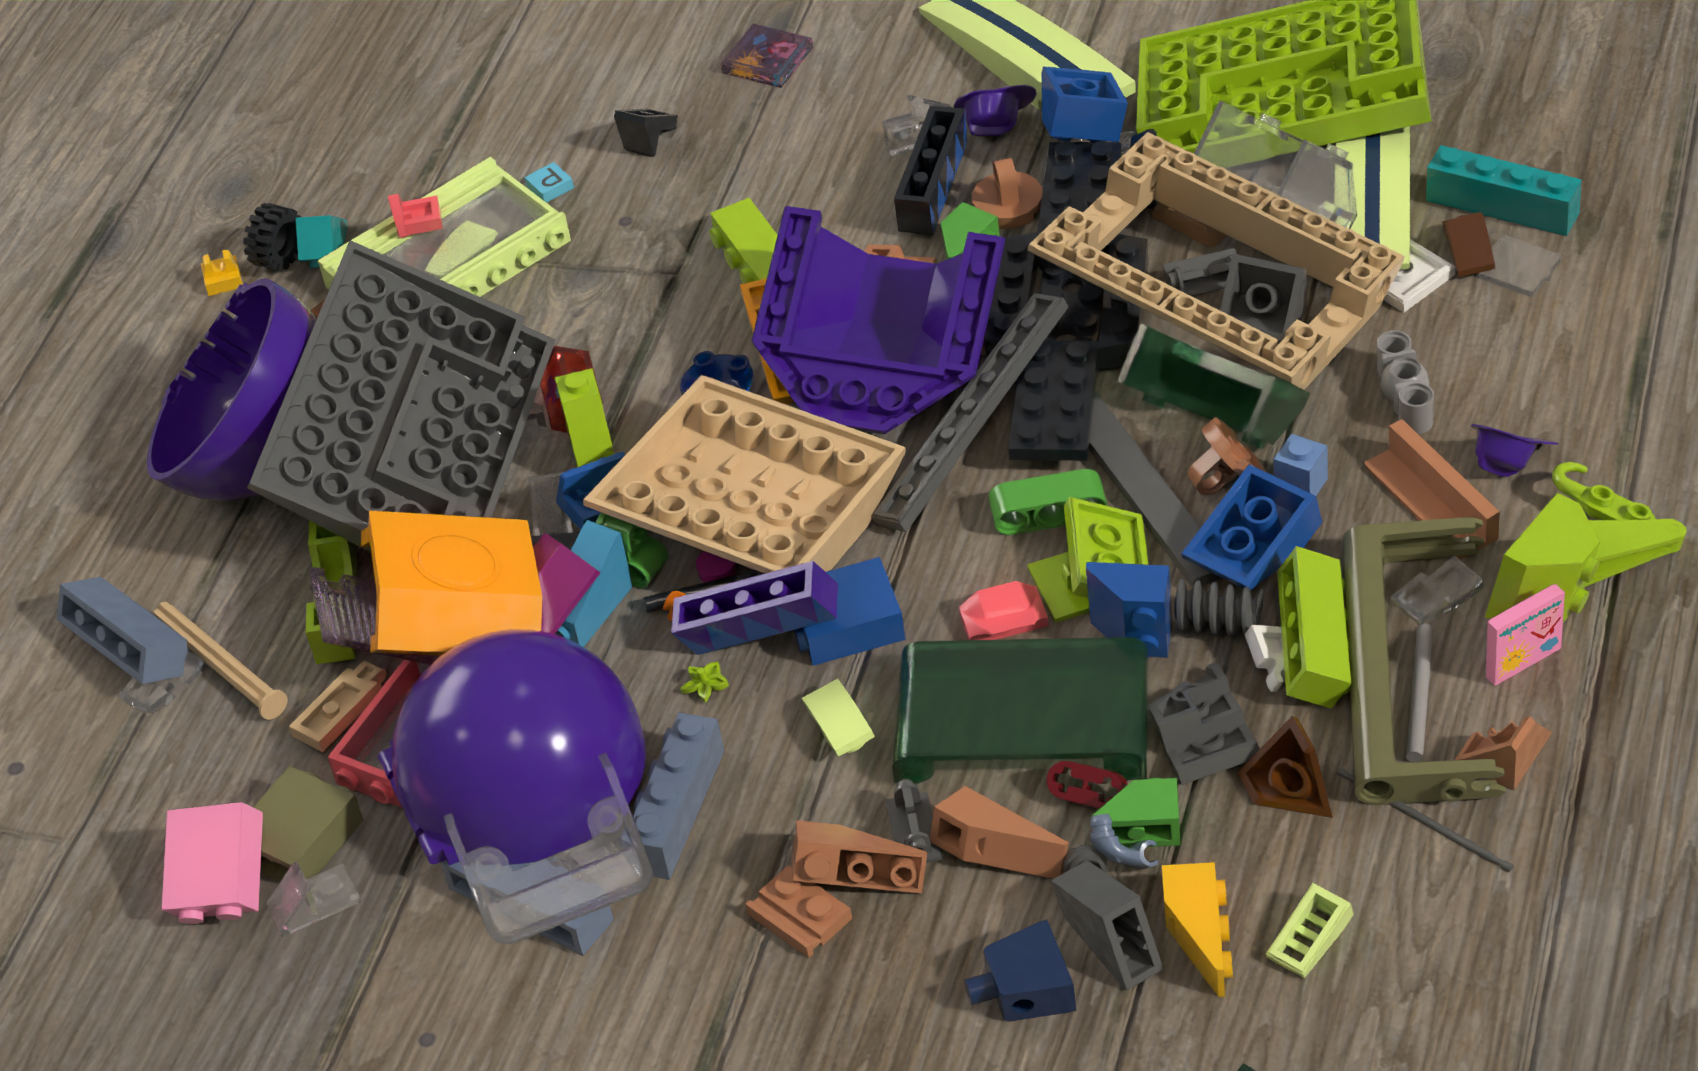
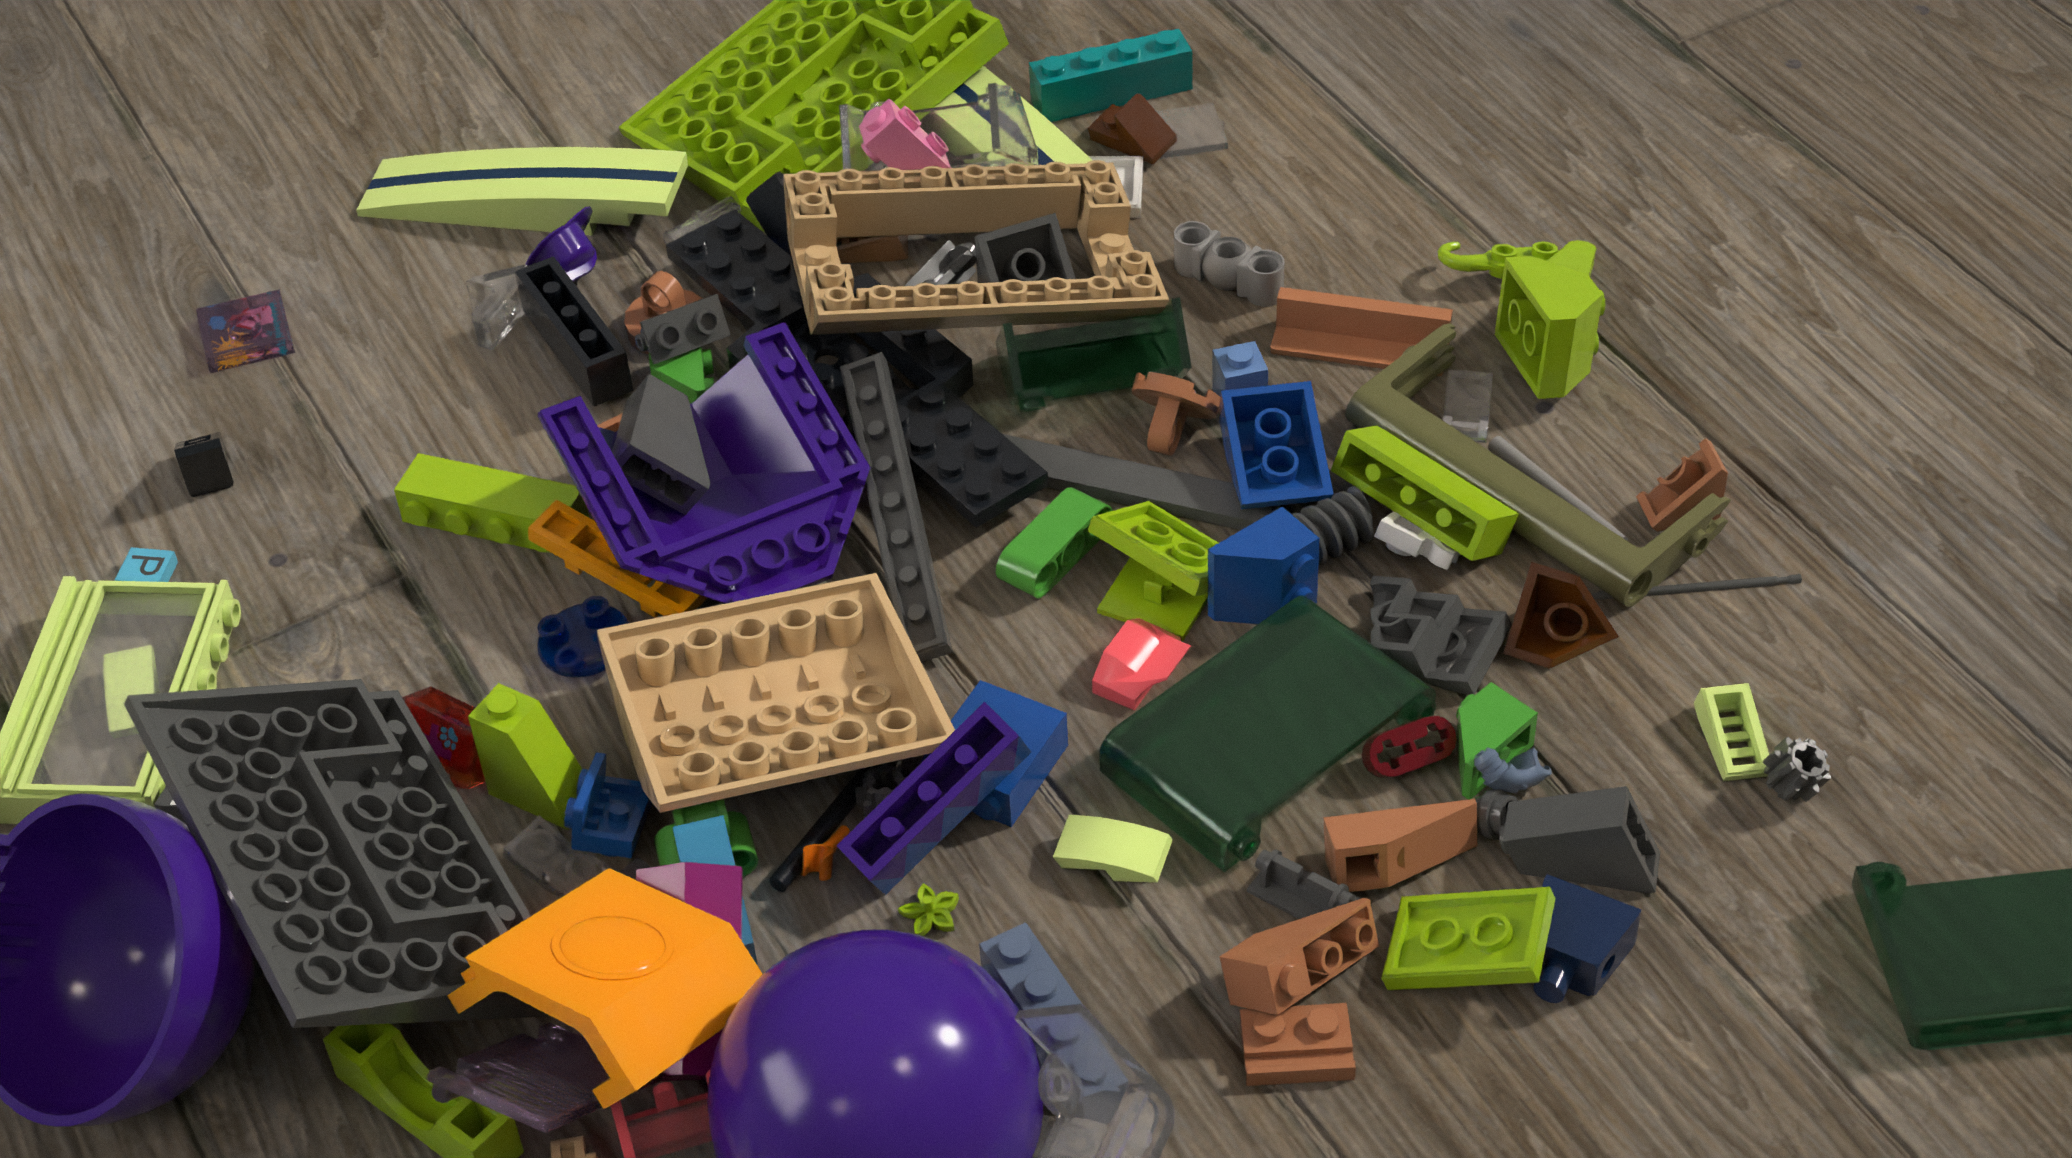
camera: 50 degrees left, 0 degrees up
(415, 215) = (52, 677): coral tile -> none
(714, 567) = (803, 802): dark pink tile -> none
(869, 277) = (661, 446): none -> dark grey slope
(957, 923) = (1469, 939): none -> lime tile
(979, 208) = (683, 329): none -> dark grey hinge
(1082, 104) = (674, 191): blue slope -> none
(1194, 920) = (1661, 789): yellow slope -> none
(1251, 152) = (899, 141): none -> bright pink brick
(1309, 968) = (1797, 769): none -> dark grey gear
(1502, 451) = (1381, 264): dark purple piece -> none
(1524, 634) = (1598, 387): bright pink tile -> none

